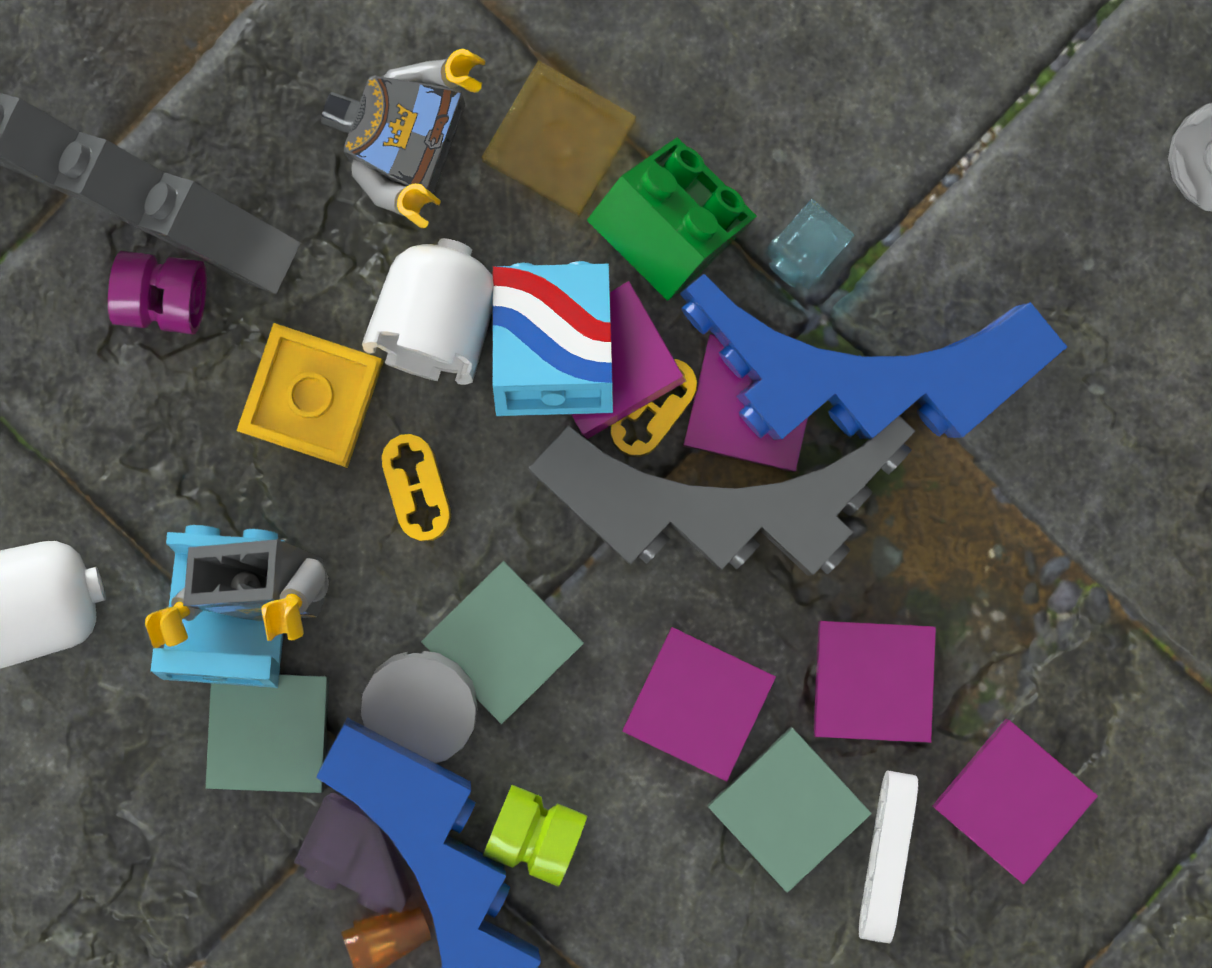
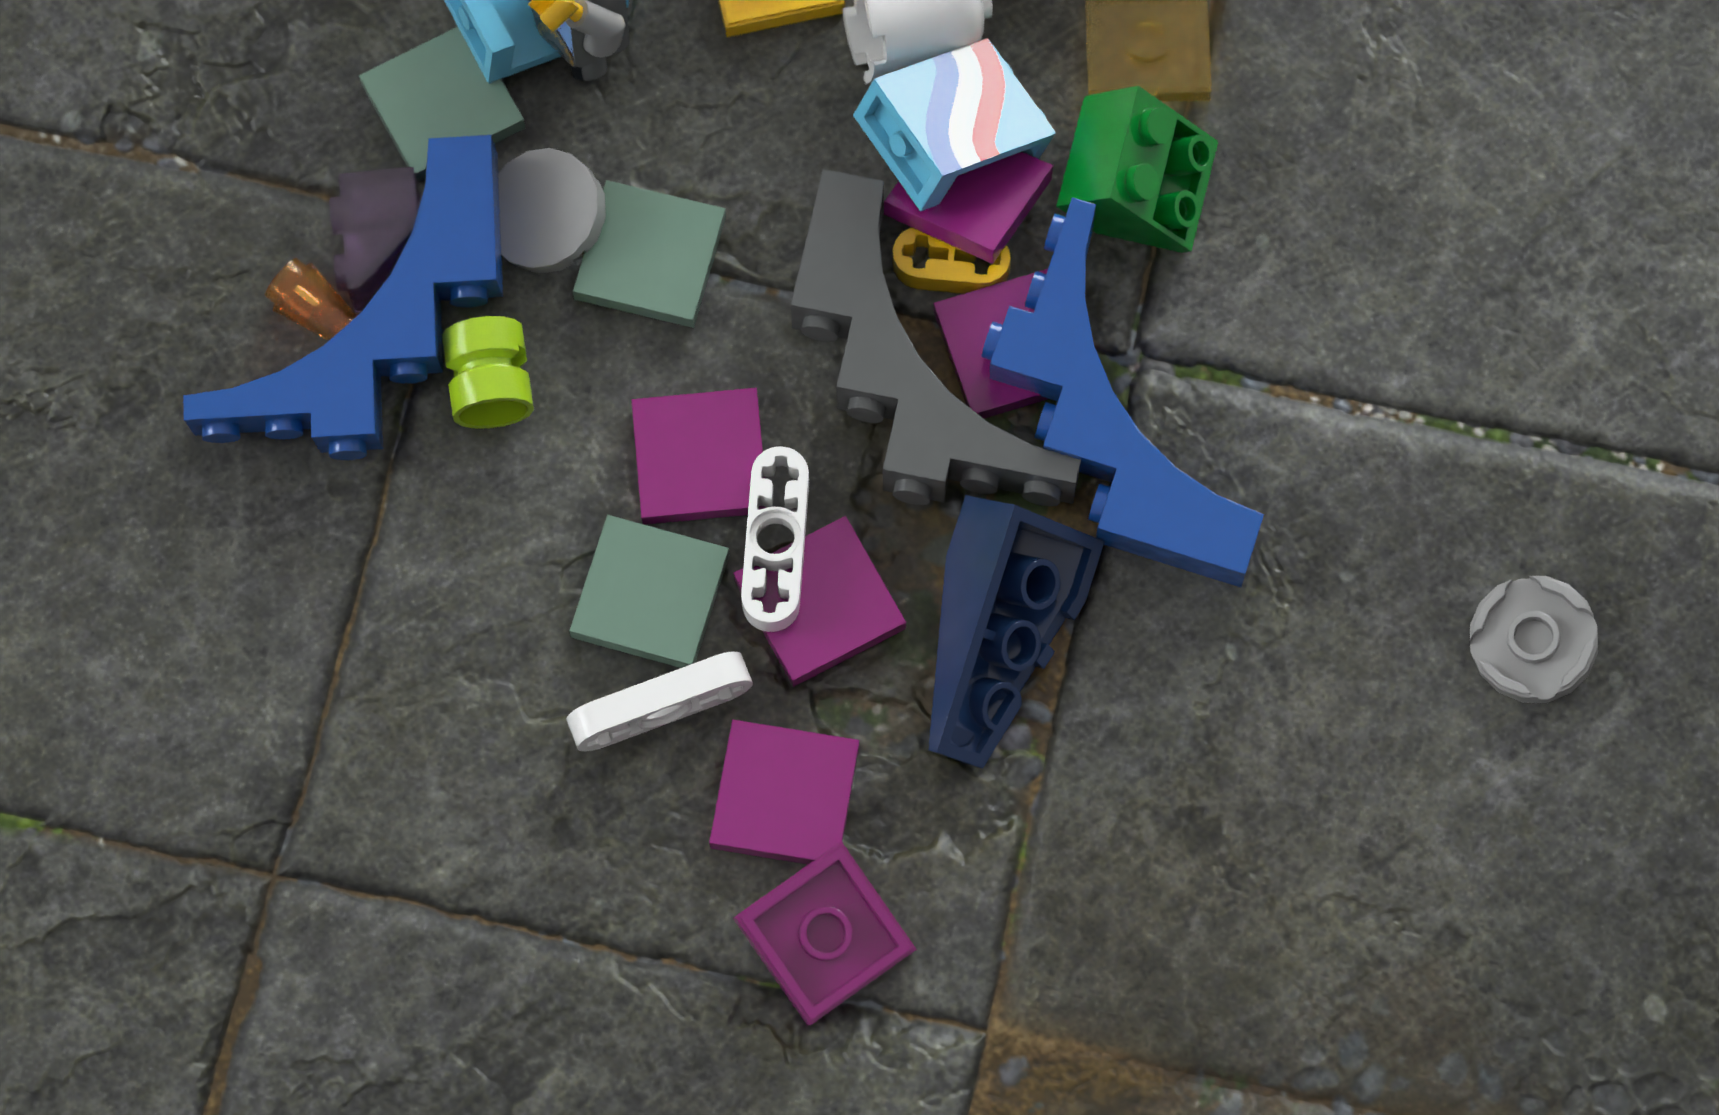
camera: 60 degrees right, 15 degrees down
(402, 490) = (754, 109): yellow beam -> none
(807, 245) = (1191, 308): clear light blue bracket -> none
(857, 702) = (795, 497): none -> white beam
(959, 540) = (1003, 601): none -> dark blue wedge
(1147, 839) = (824, 933): none -> magenta tile

